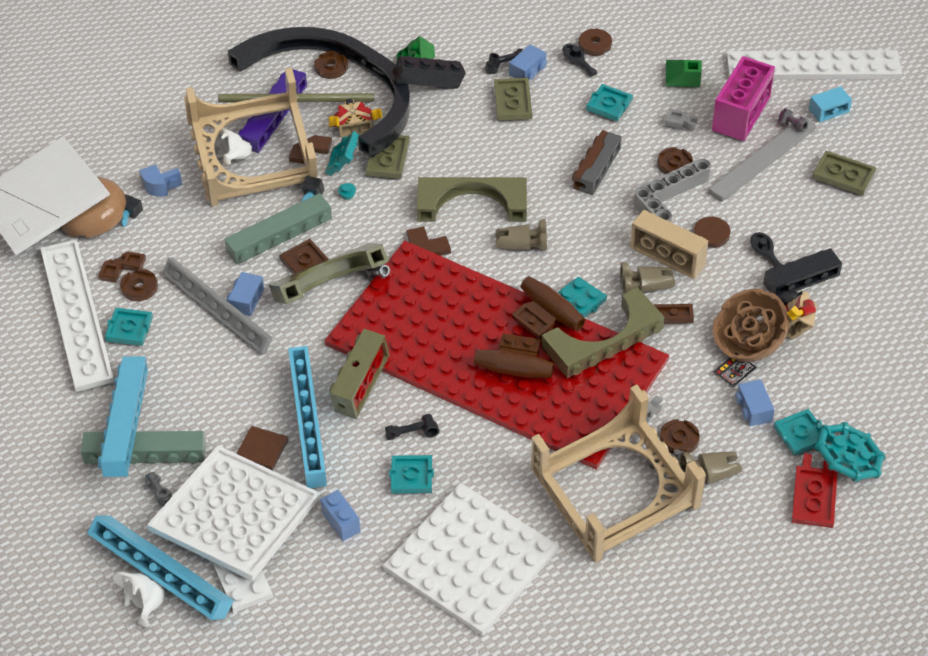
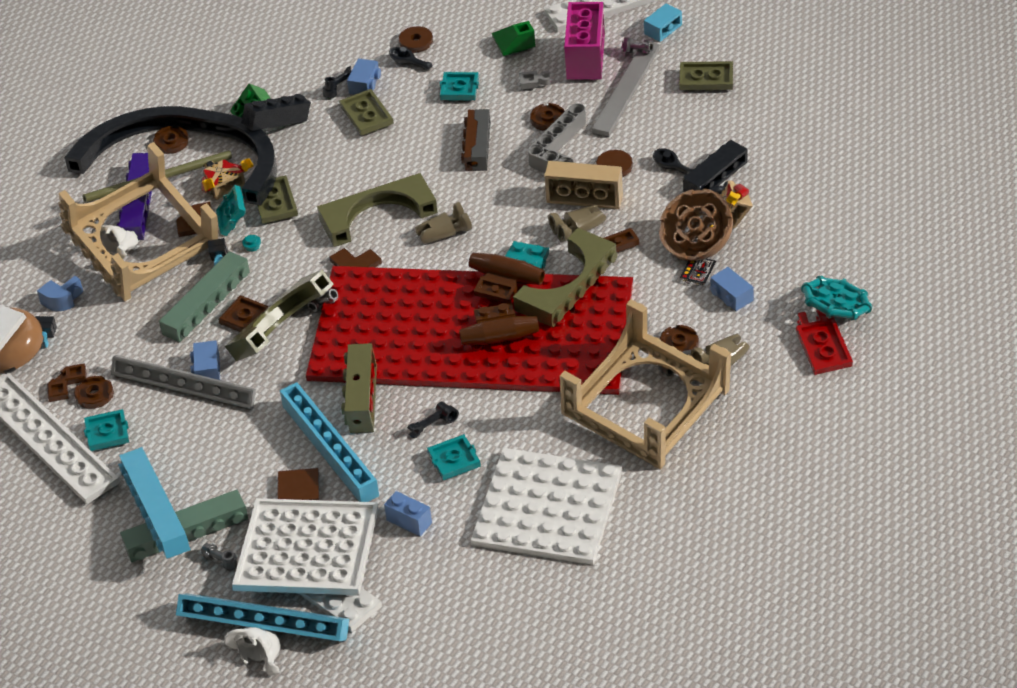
camera: 20 degrees left, 5 degrees down
(799, 431) = (783, 298): teal plate -> none

